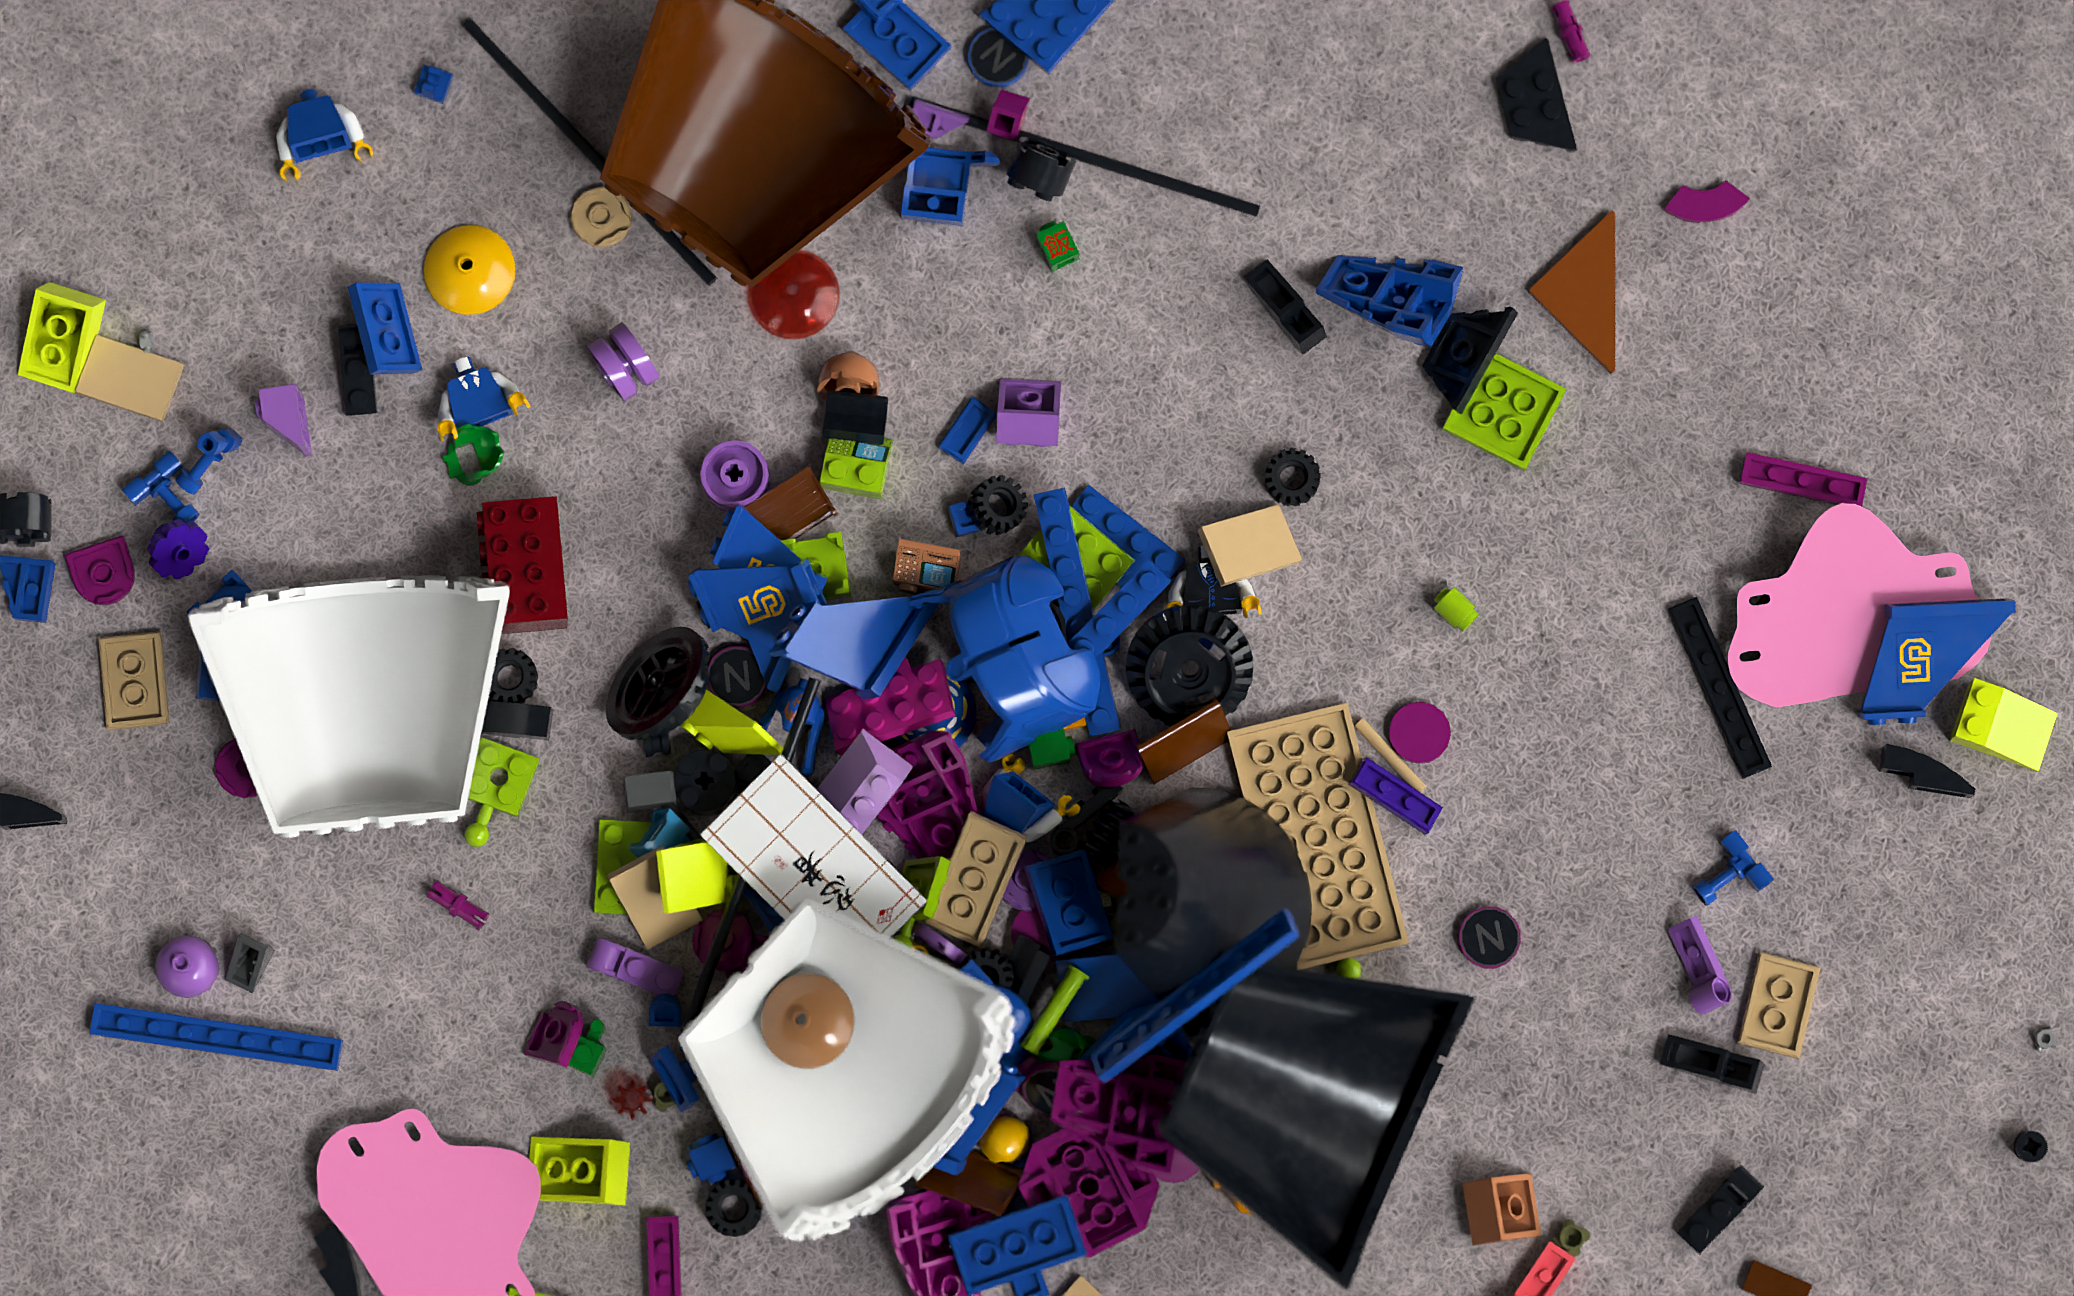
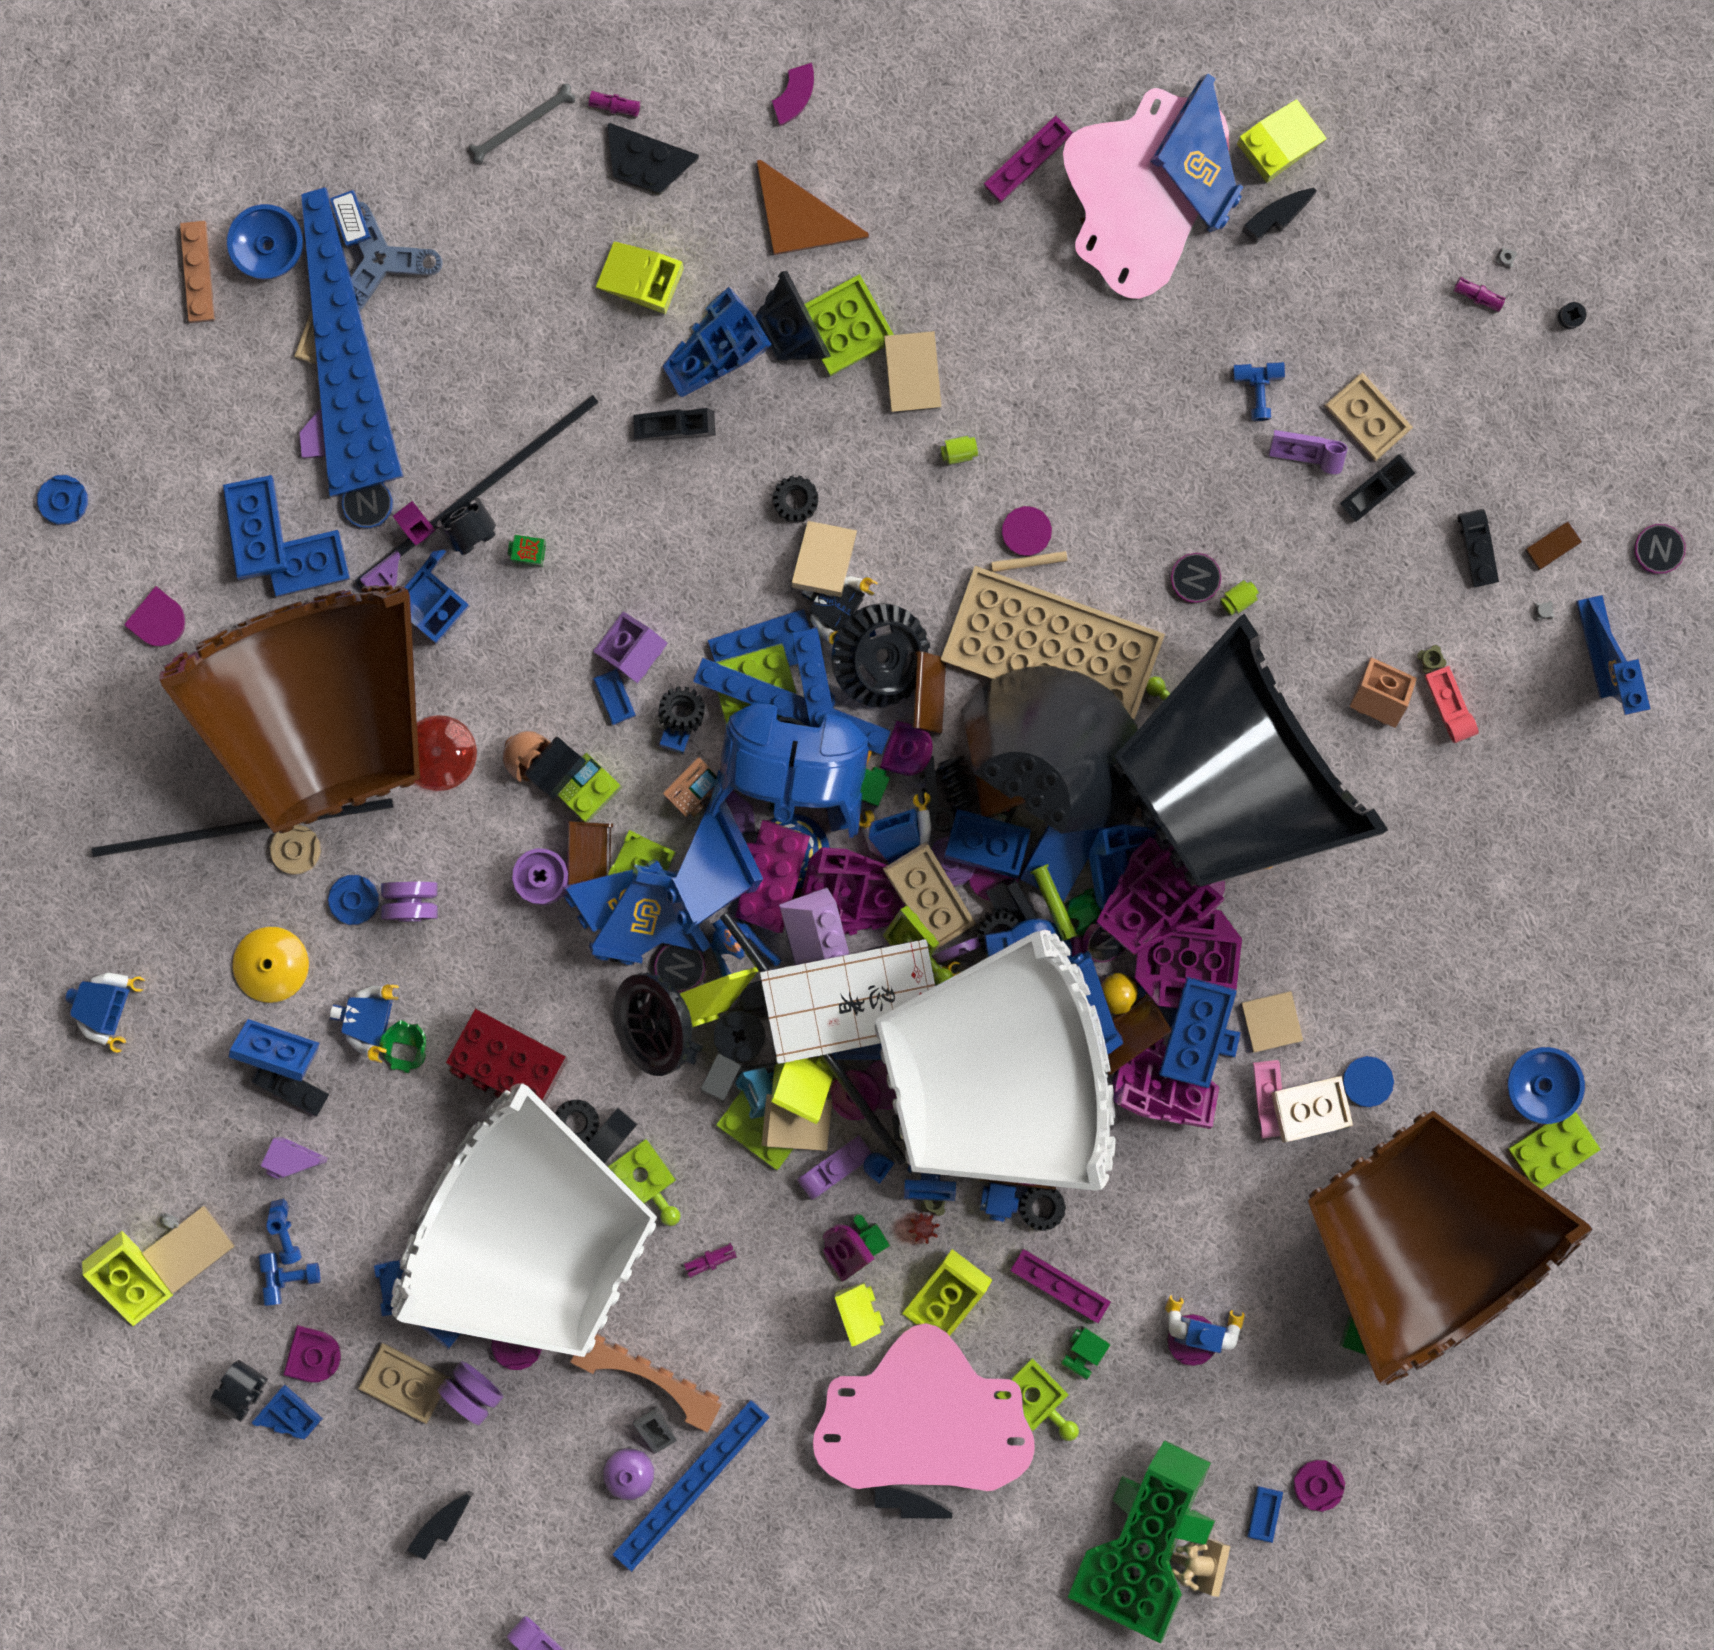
camera: 55 degrees left, 5 degrees up
(165, 750) = (470, 1393): none -> medium lavender wheel
(177, 548) = (332, 1294): dark purple plant -> none
(300, 990) = (698, 1406): none -> nougat arch
(433, 83) = (121, 903): blue tile -> none
(500, 1088) = (858, 1313): none -> neon yellow slope
(588, 317) = (362, 899): none -> blue tile
(827, 1024) = (958, 1057): medium nougat dish -> none
(934, 634) = (742, 812): none -> medium lavender tile
(1194, 995) = (1118, 800): blue plate -> none
(1395, 796) = (1059, 576): dark purple tile -> none
(1412, 173) = (640, 276): none -> neon yellow slope
(1499, 995) = (1239, 597): none -> lime brick
(1503, 508) = (912, 371): none -> tan tile
(1719, 688) = (1130, 310): black tile -> none
(1985, 1035) = (1479, 294): none -> magenta pin

